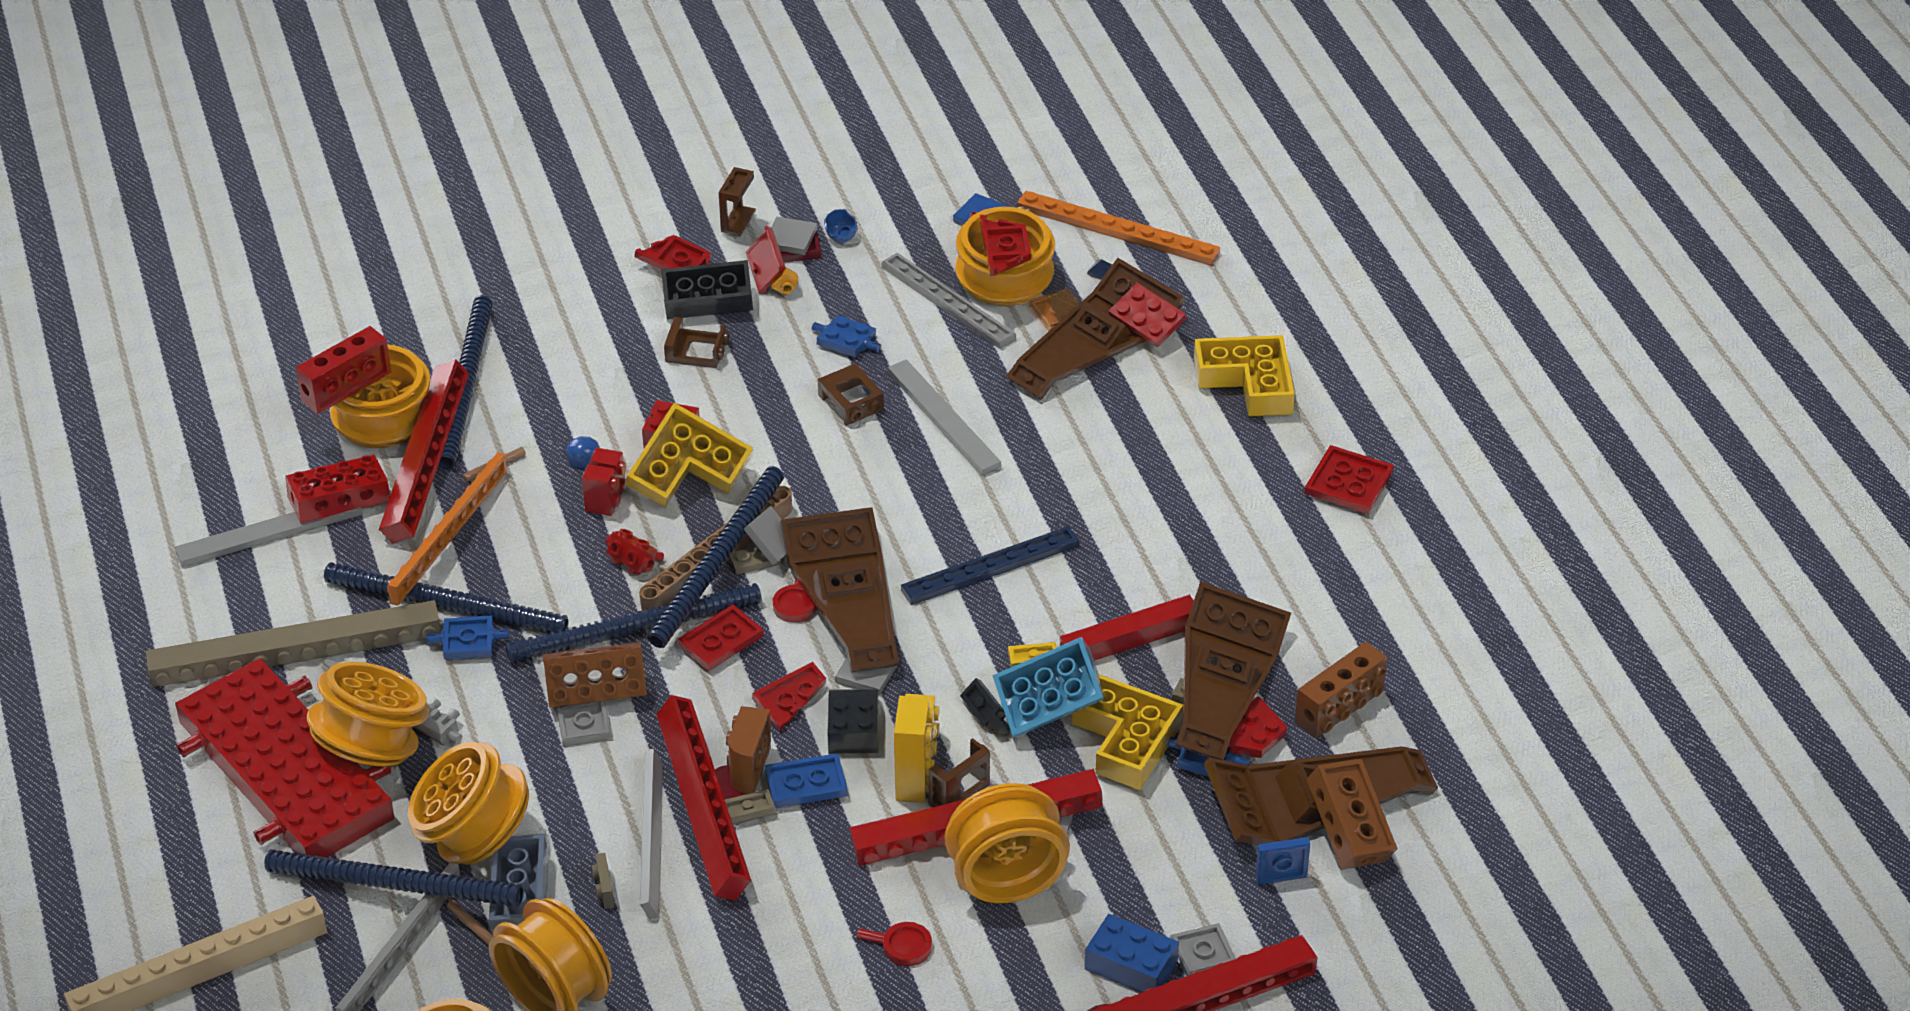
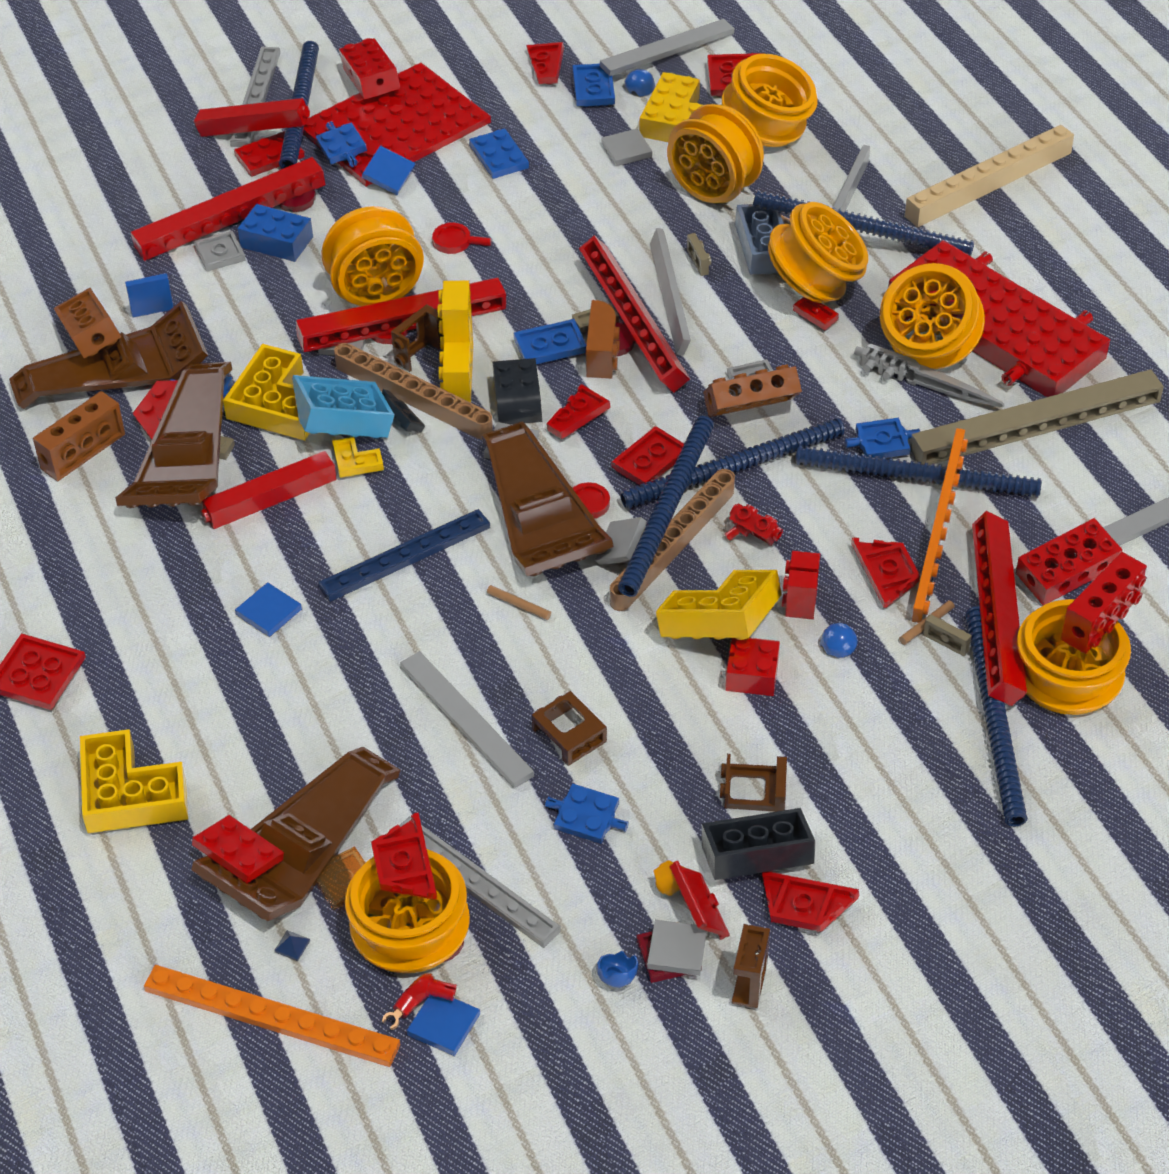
camera: 175 degrees right, 5 degrees up
(479, 442) = (947, 635): none -> dark tan plate
(513, 510) = (887, 568): none -> red wing
(881, 511) = (519, 602): none -> medium nougat bar
(964, 725) = (413, 390): none -> medium nougat beam
(1128, 522) = (268, 609): none -> blue tile

